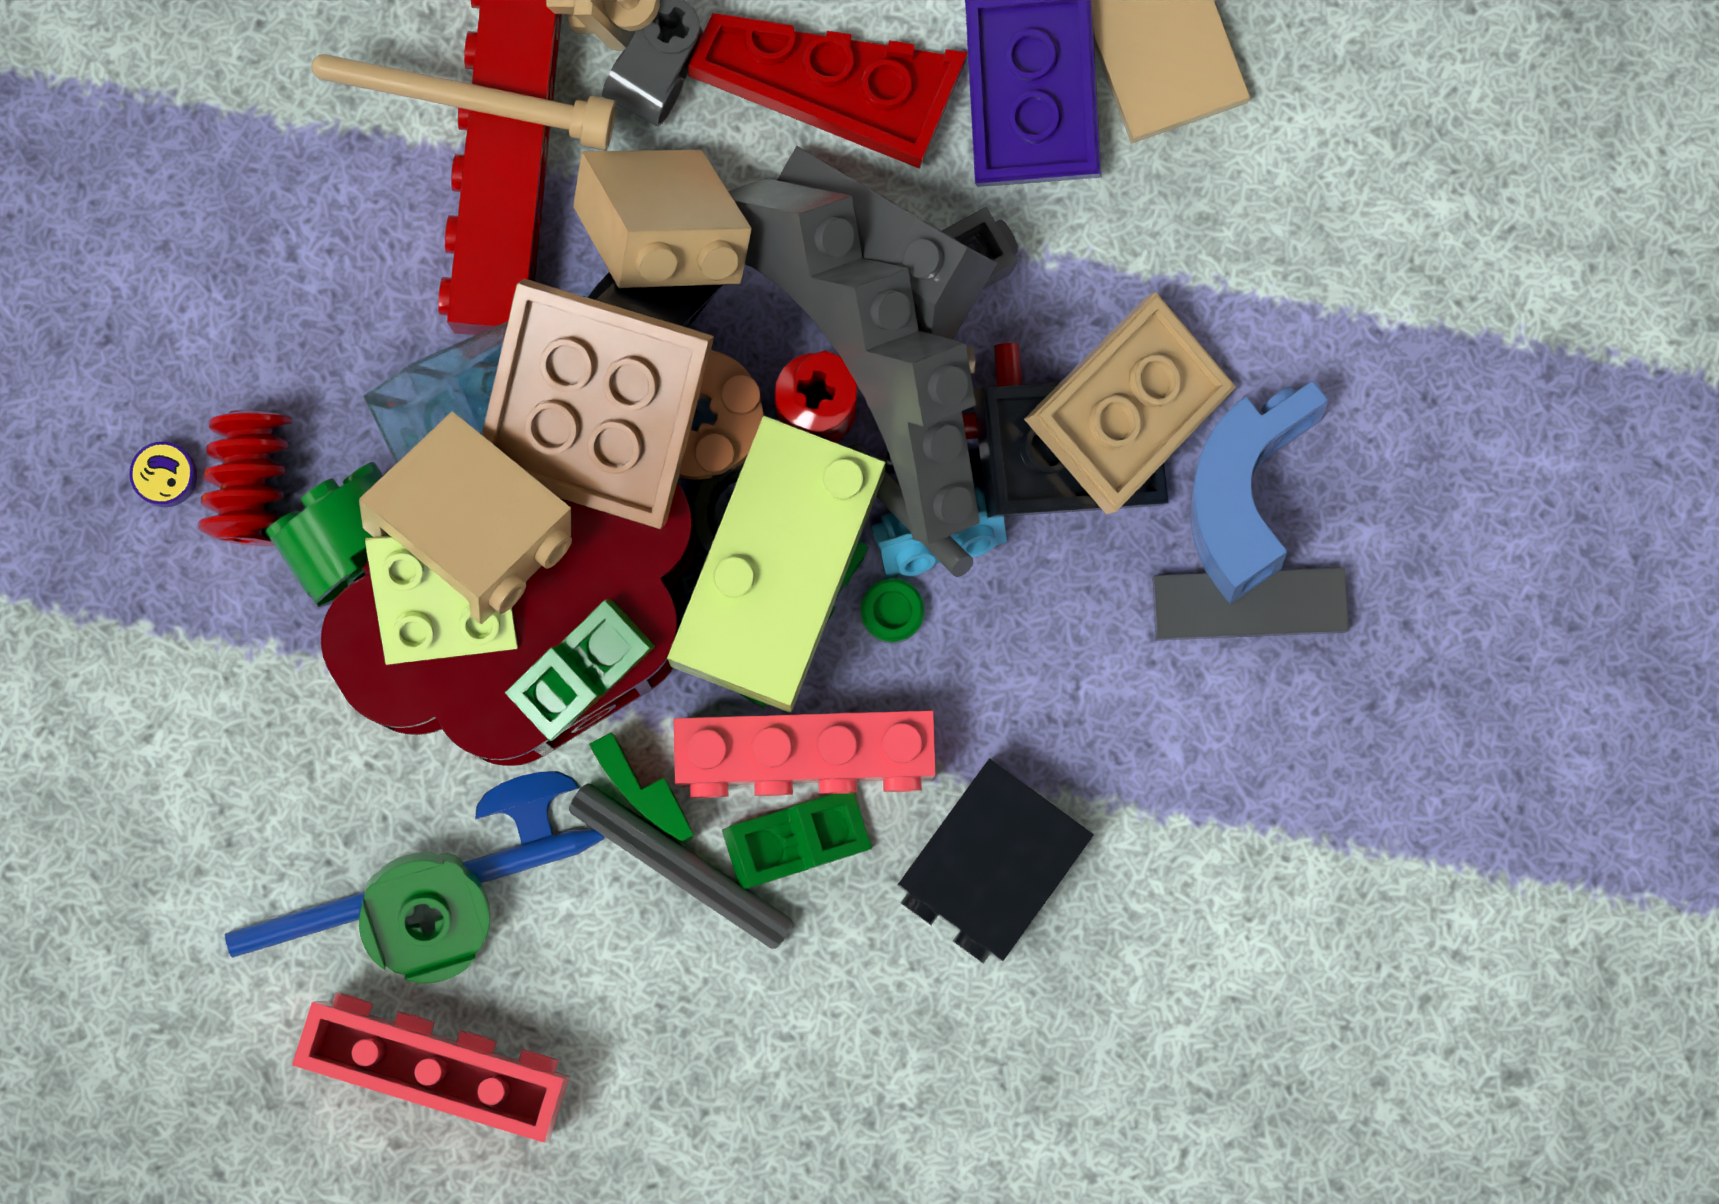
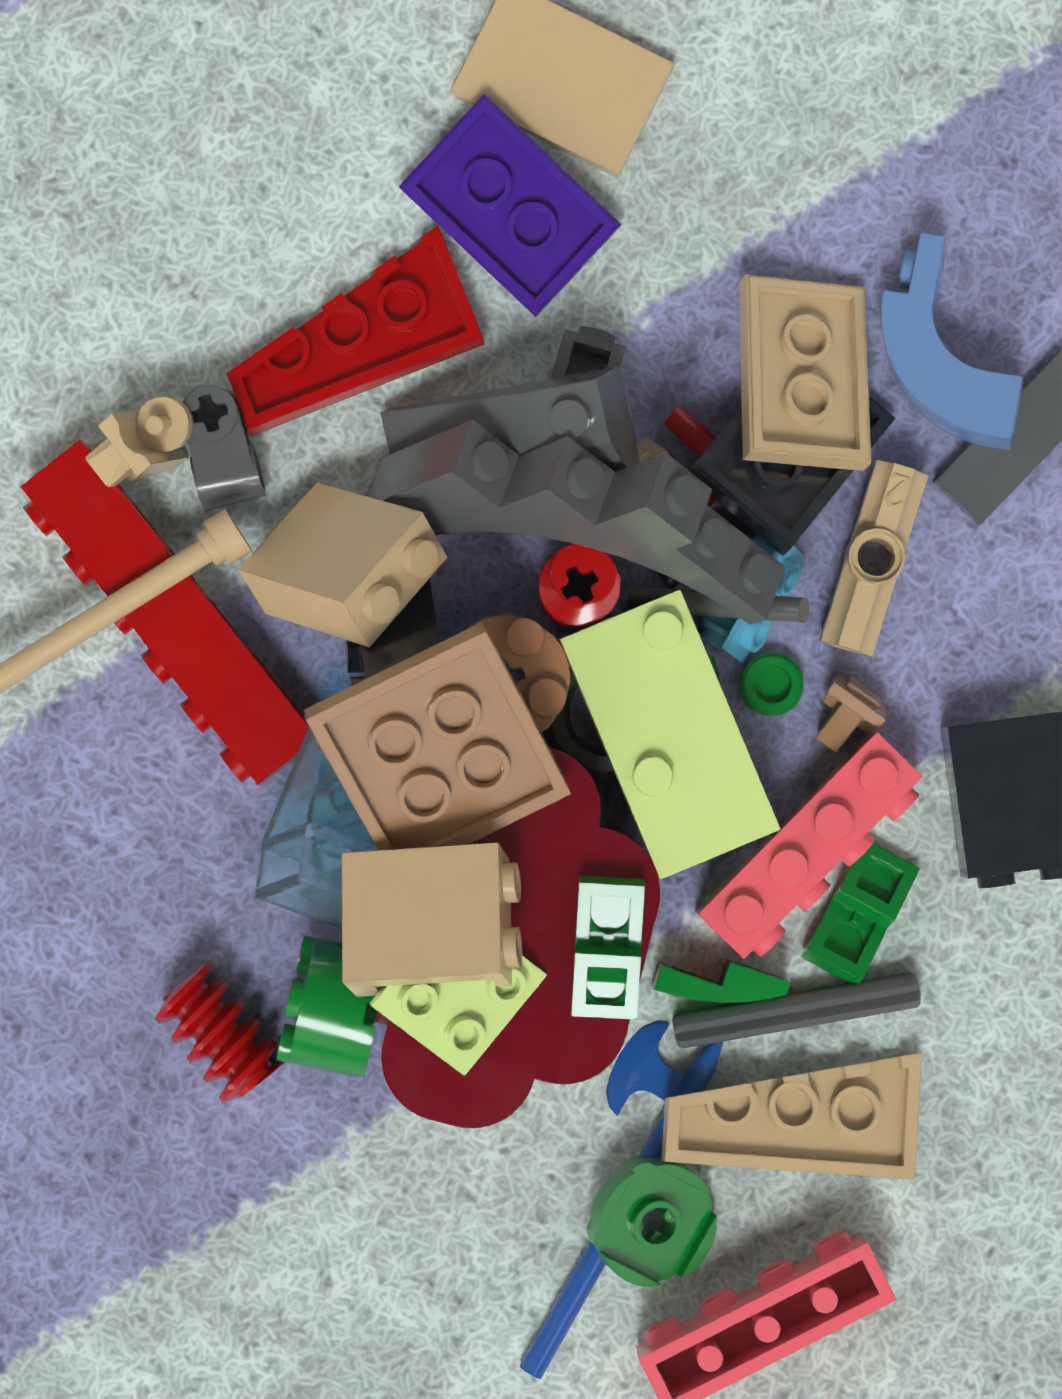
camera: 40 degrees left, 5 degrees up
(163, 474) = (155, 1086): tile -> none
(616, 962) = (816, 1122): none -> tan wing
(935, 681) = (853, 706): none -> medium nougat brick
(1089, 567) = (883, 518): none -> tan piece

